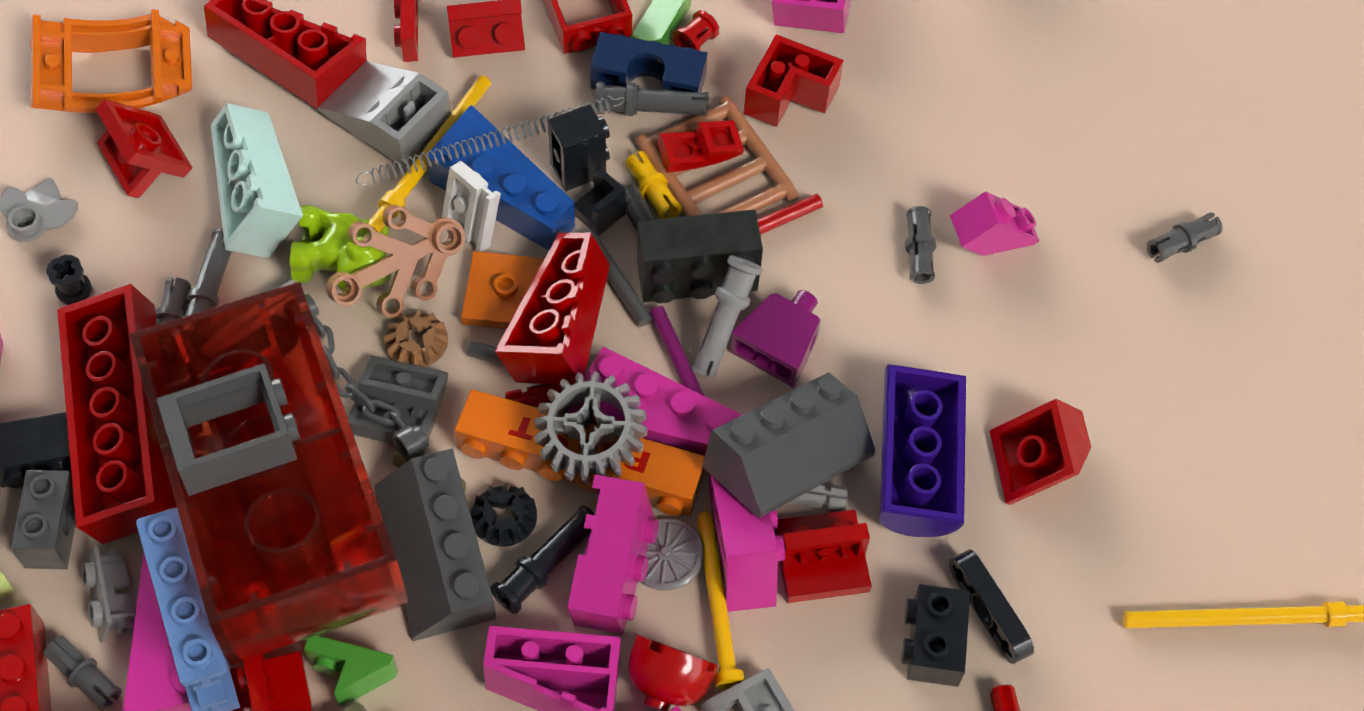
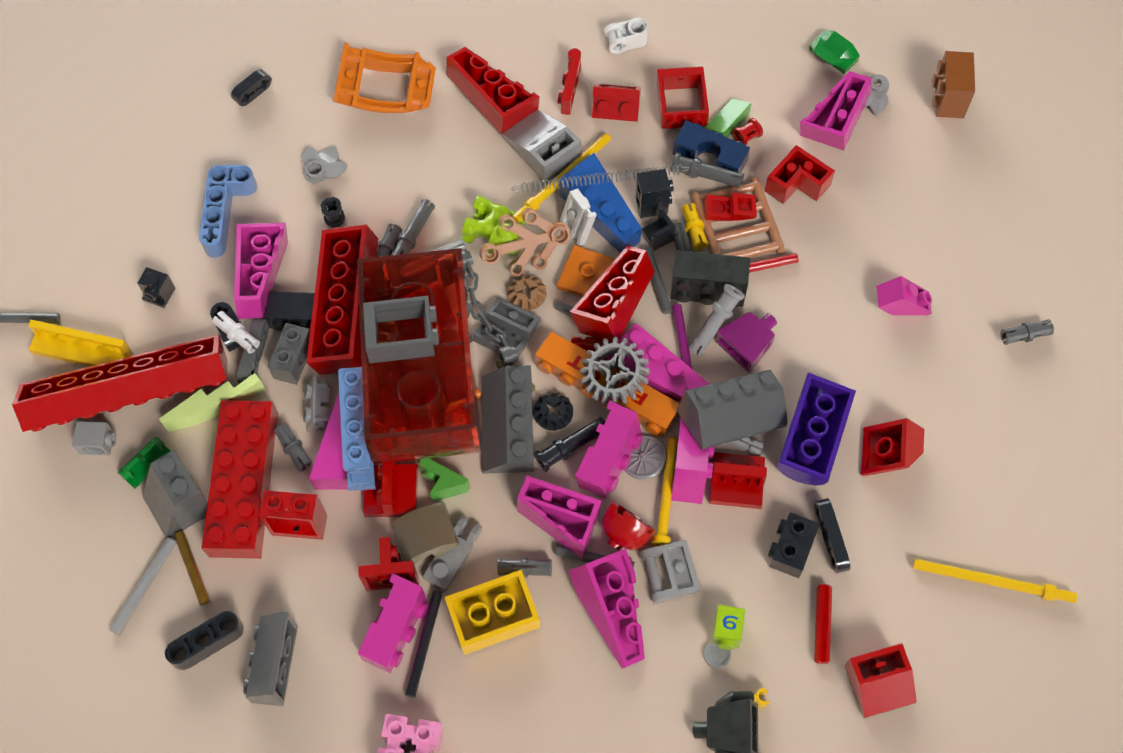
camera: 20 degrees right, 5 degrees up
(139, 147) = (390, 138): red bracket -> none
(252, 182) = (451, 174): light aqua wedge -> none
(920, 245) = (853, 300): dark grey pin -> none

